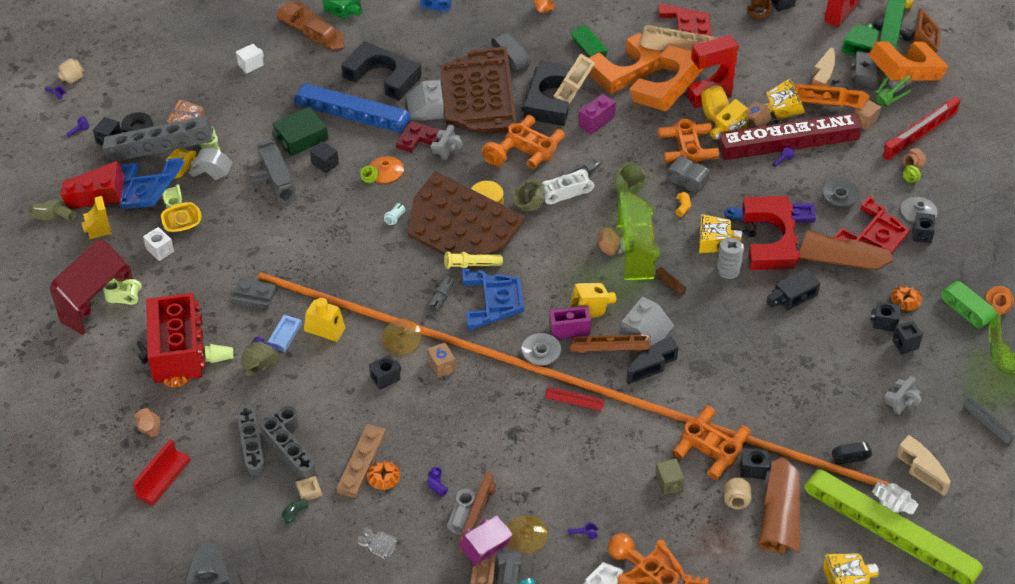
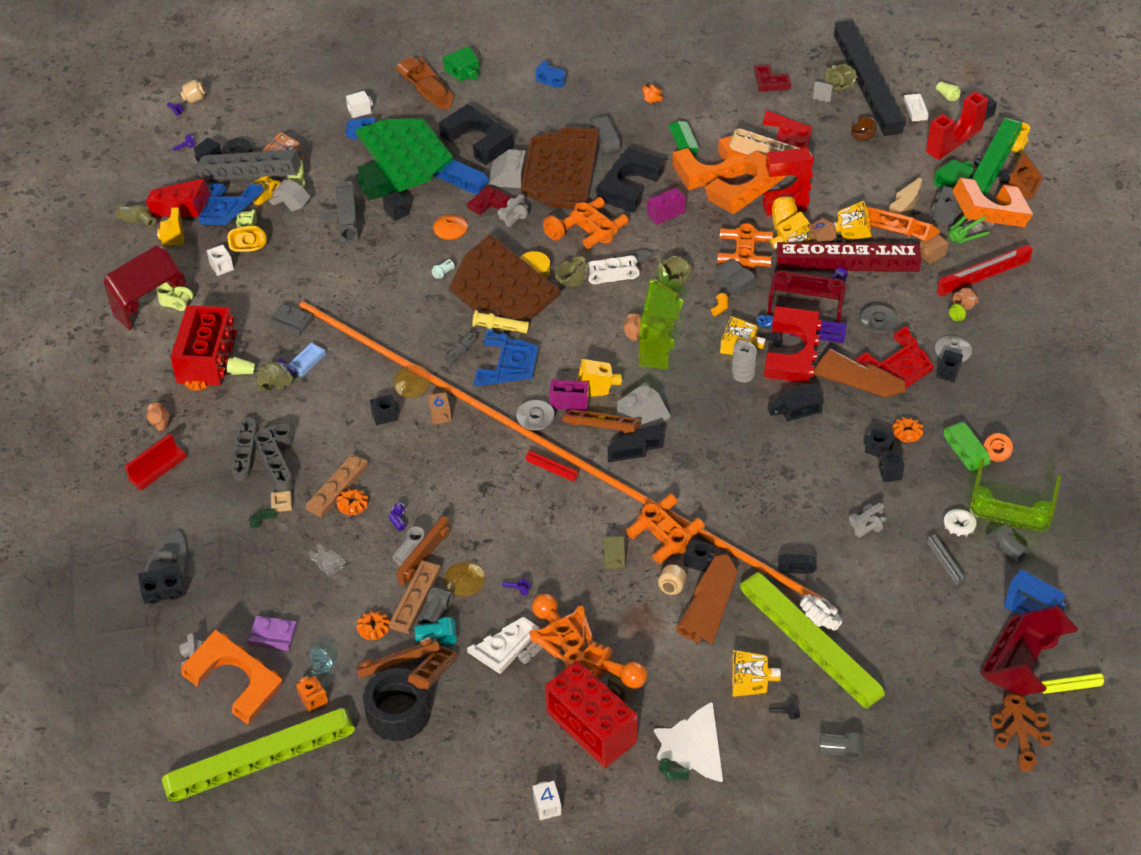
camera: 15 degrees right, 0 degrees up
(261, 82) = (355, 124): none -> blue leg
(317, 98) = (405, 150): none -> green plate
(324, 320) = (344, 353): yellow torso -> none
(366, 171) = (432, 228): lime plate -> none
(485, 539) = (419, 575): brick -> none
(574, 79) = (652, 170): tan slope -> none
(670, 281) = (682, 374): reddish brown axle -> none
(766, 171) = (807, 285): none -> dark red windscreen
(923, 465) = (862, 587): tan slope -> none
(989, 375) = (962, 516): none -> white gear

